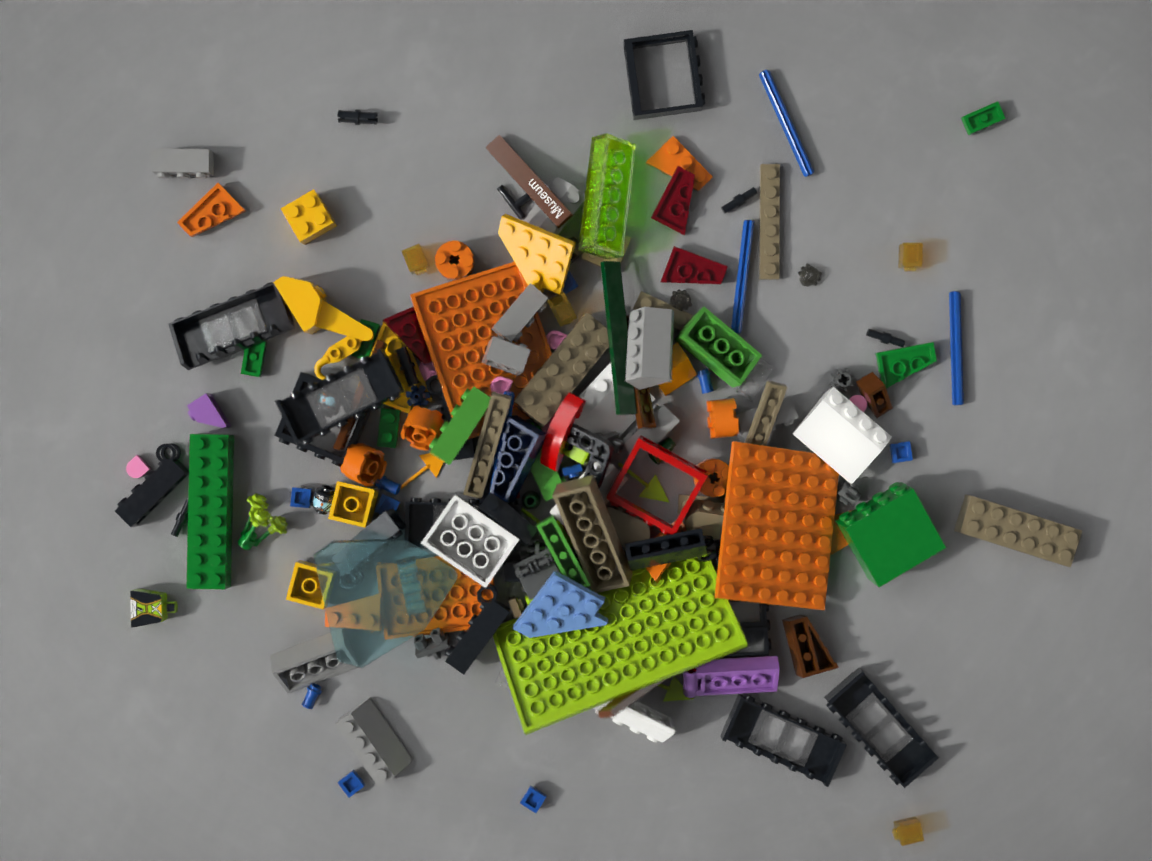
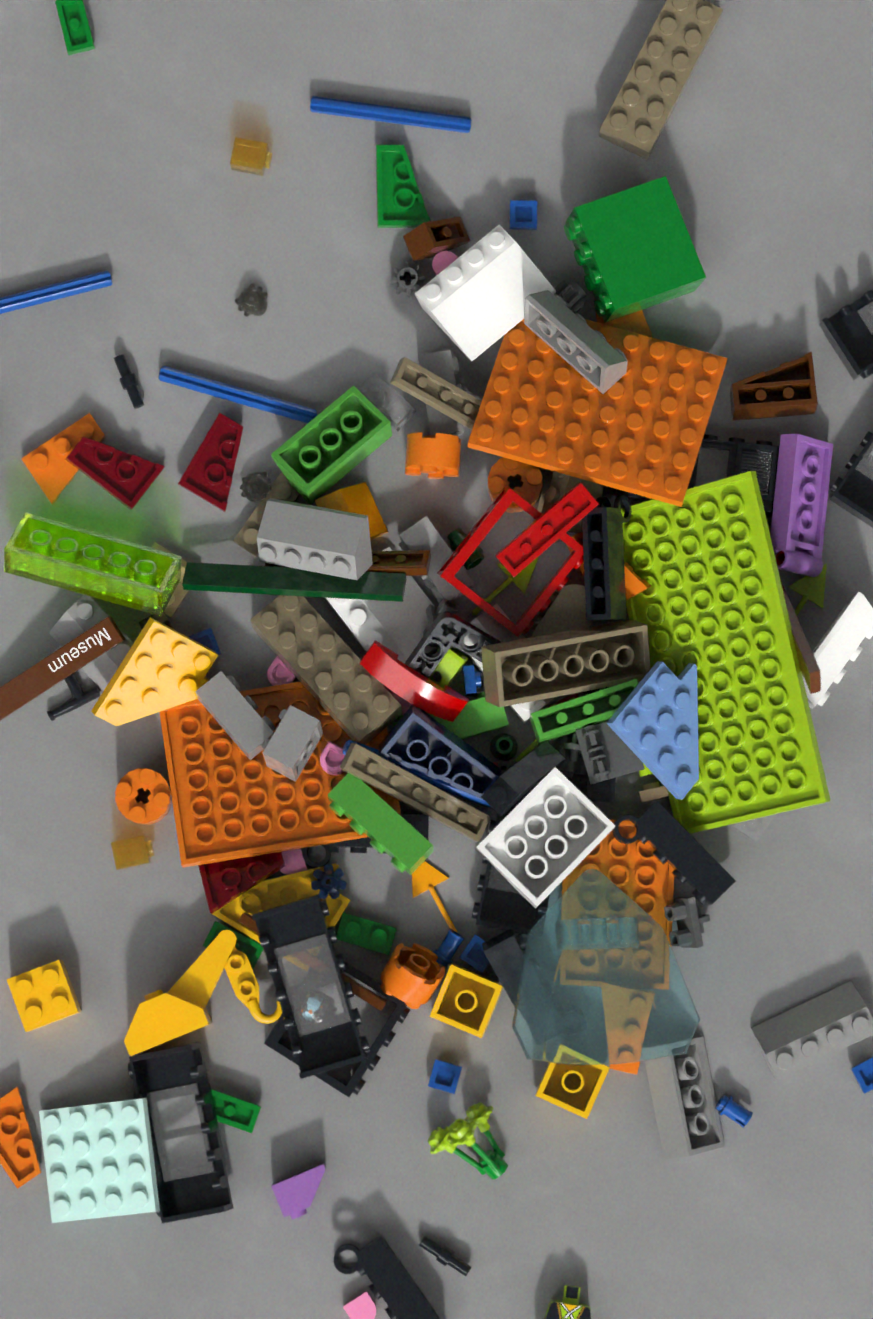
camera: 75 degrees left, 5 degrees down
(204, 274) = (99, 1160): none -> light aqua plate
(210, 511) = (442, 1211): green brick -> none
(323, 499) = (452, 1043): head -> none
(407, 366) = (283, 889): black pin -> none
(422, 427) = (373, 881): orange brick -> none
(562, 309) = (239, 655): clear yellow brick -> none
(682, 506) = (546, 529): none -> red plate
(705, 381) = (376, 471): blue pin -> none
(769, 222) = (167, 344): dark tan plate -> none
(819, 503) = (574, 340): none -> light grey slope
(885, 338) = (359, 209): black bar -> none

